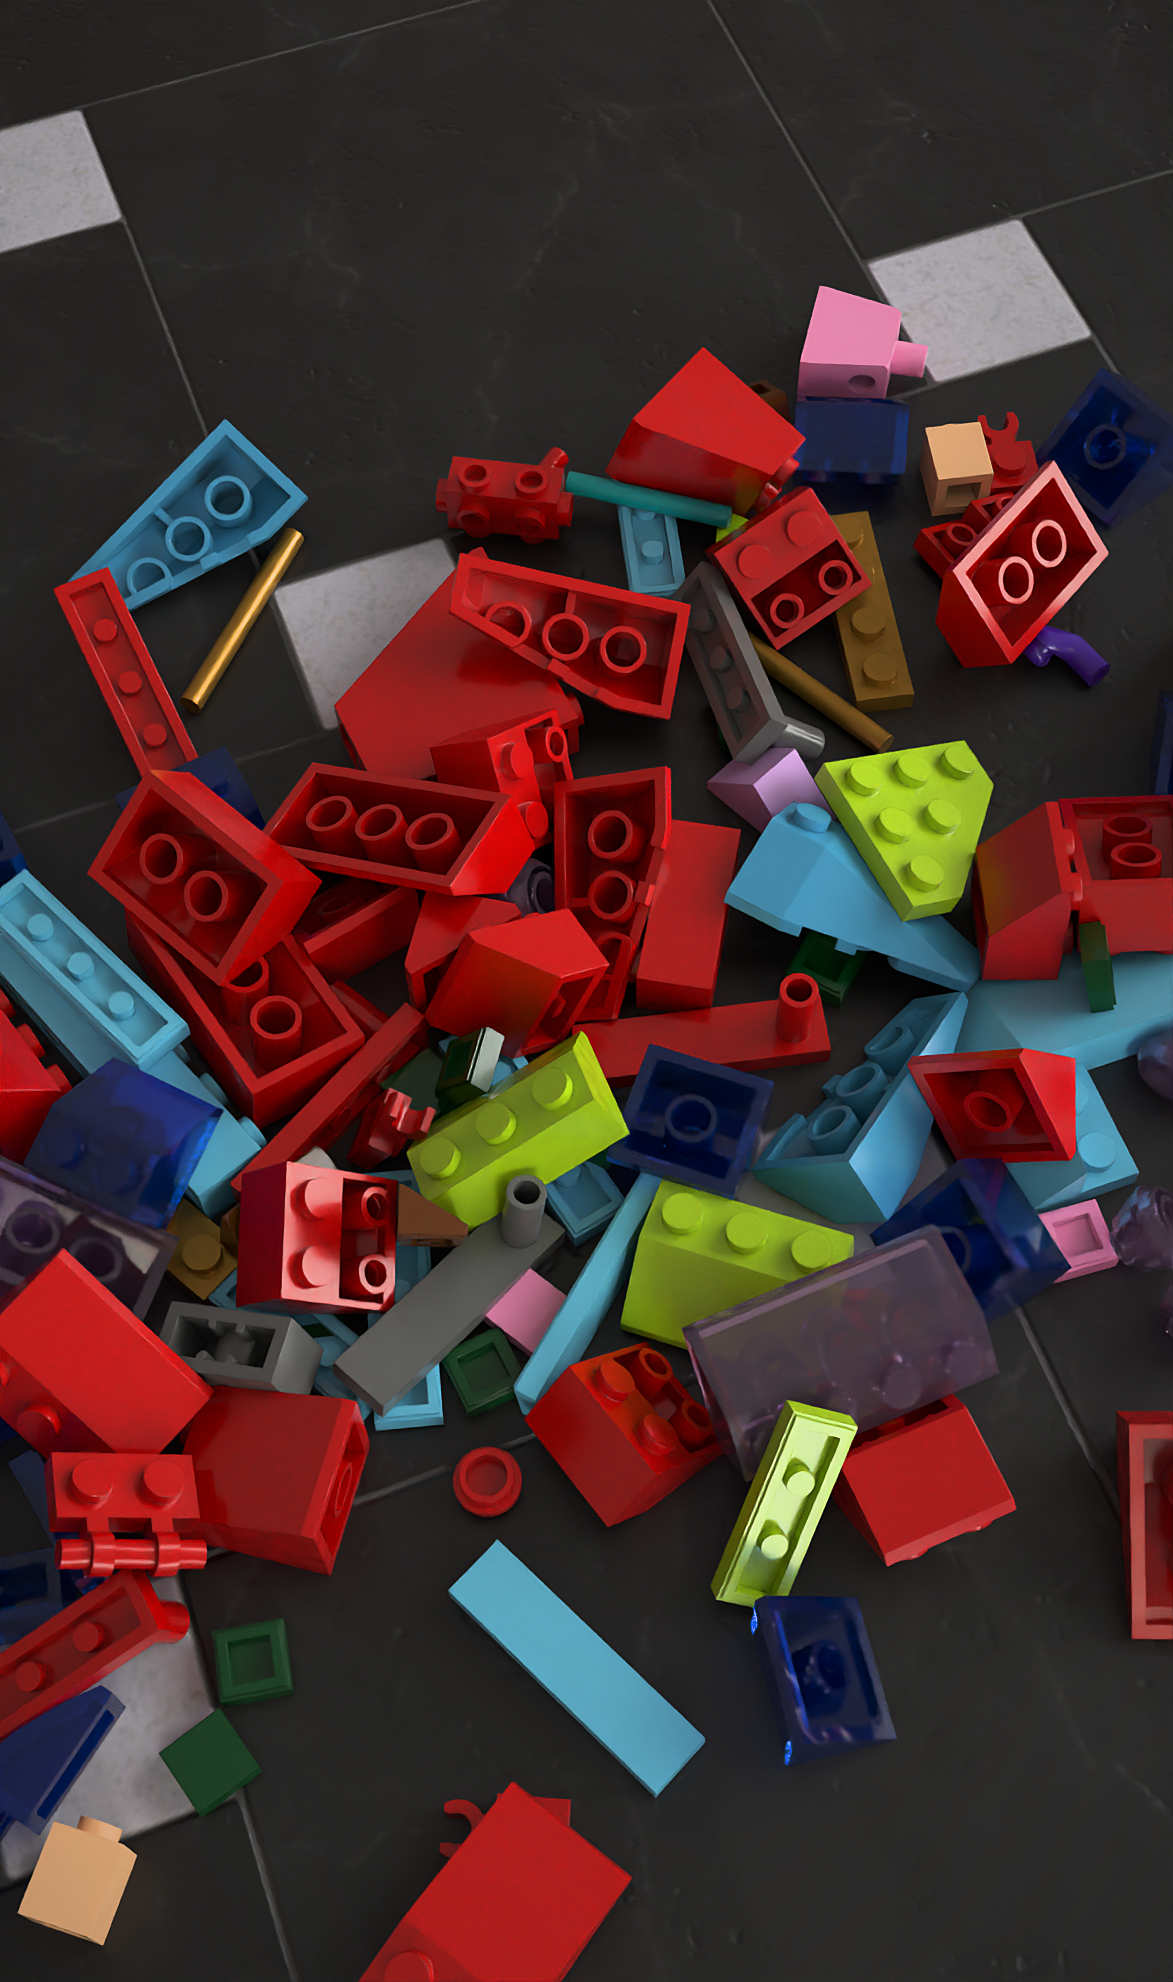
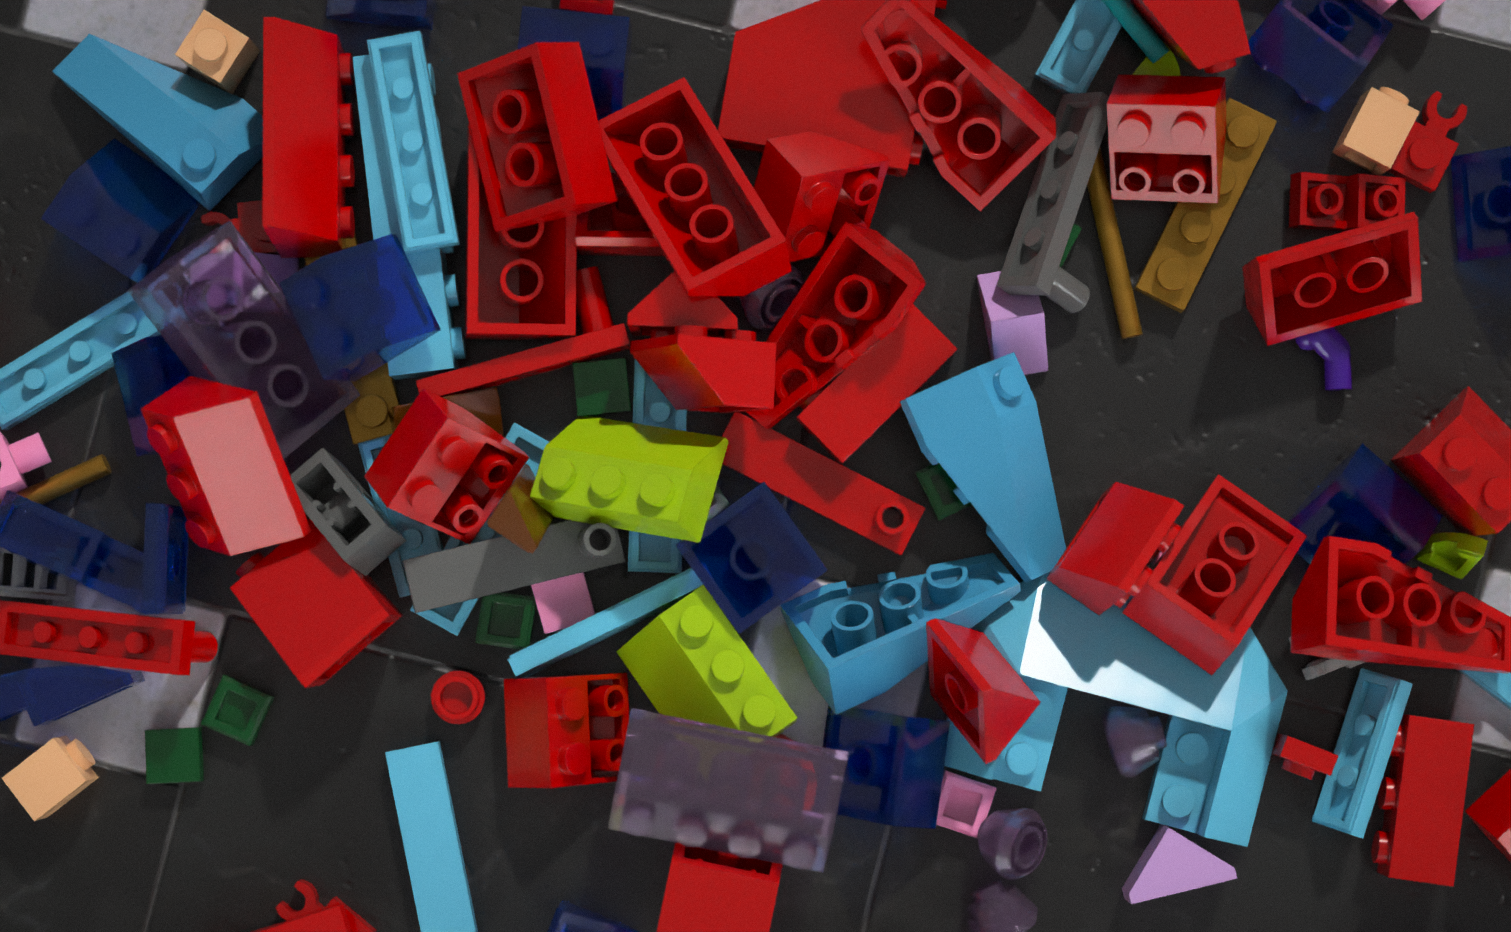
camera: 35 degrees right, 25 degrees up
(123, 1494) = (207, 571): red plate -> none
(386, 1127) = (551, 406): red plate -> none
(469, 1066) = (635, 402): dark green tile -> none
(784, 1504) = (620, 860): lime tile -> none
(912, 820) = (1092, 426): lime plate -> none
(1097, 966) = (1120, 638): dark green tile -> none

